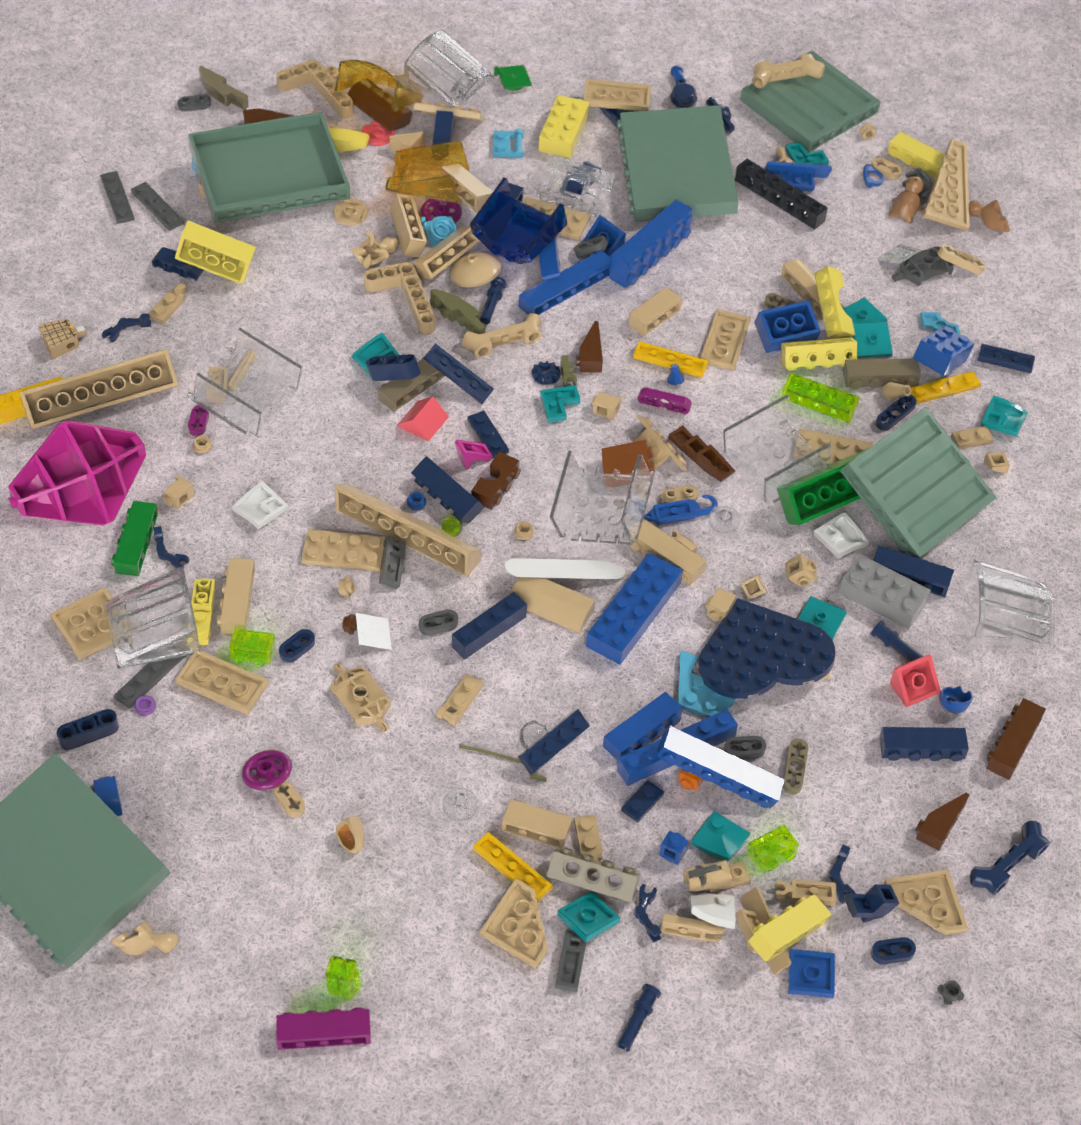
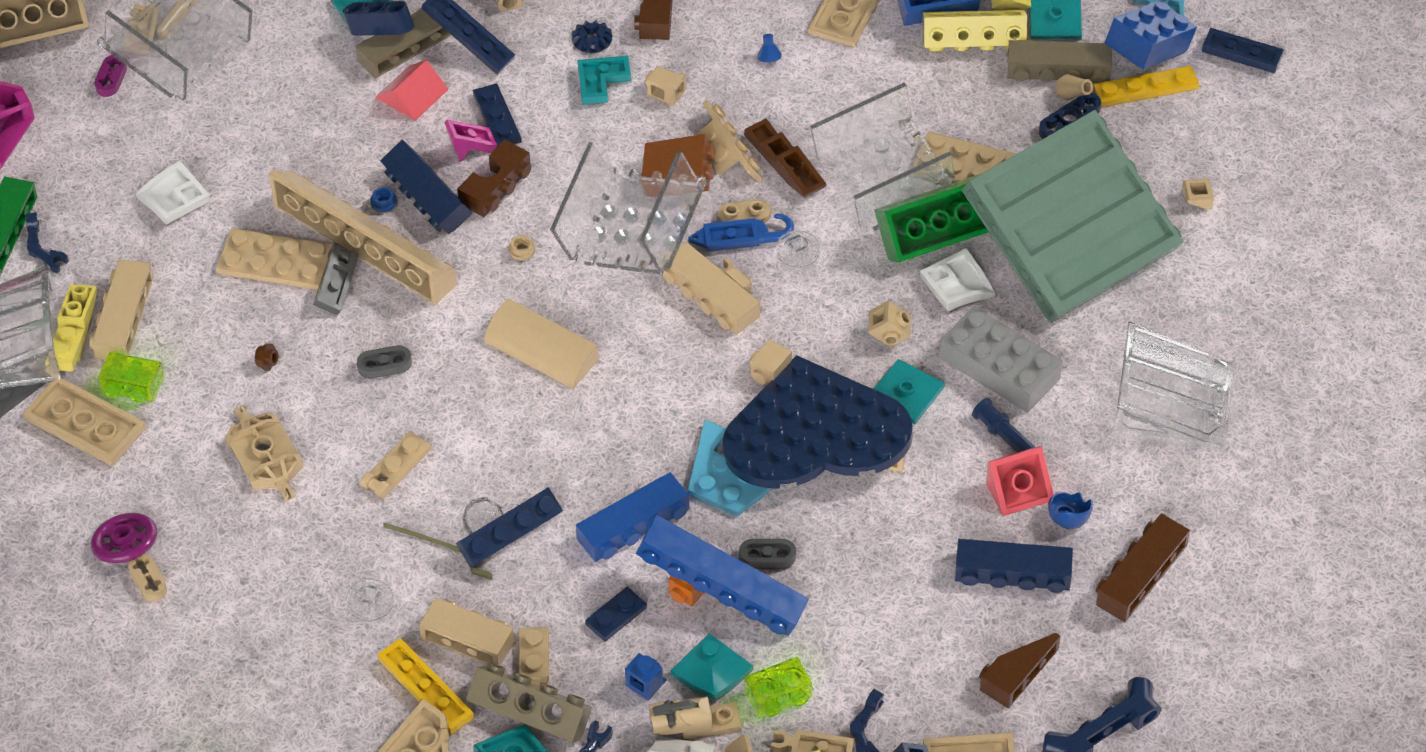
camera: 10 degrees right, 0 degrees up
(178, 493) = (67, 170): tan brick -> none
(207, 444) = (109, 102): tan plate -> none
(295, 645) = (189, 380): dark blue plate -> none
(346, 587) = (269, 307): tan plate -> none
(350, 834) = (219, 627): tan rock -> none
(373, 631) = (295, 368): flat silver sticker -> none
(452, 526) = (425, 236): clear neon green tile -> none
(489, 625) = (450, 370): dark blue brick -> none
(564, 568) = (565, 301): white sticker -> none
(566, 370) = (620, 32): olive plate -> none
(634, 608) = (650, 360): blue brick -> none
(644, 763) = (722, 528): blue brick -> none
(665, 358) = (759, 23): yellow plate -> none
(681, 405) = (762, 87): magenta beam -> none
(753, 587) = (822, 341): tan slope -> none
(801, 760) = (830, 572): dark tan beam -> none
(821, 397) = (965, 91): clear neon green brick -> none
(921, 571) = (1060, 337): dark blue brick -> none
(972, 437) = (1171, 157): tan plate -> none
(1004, 416) = (1222, 131): teal plate -> none

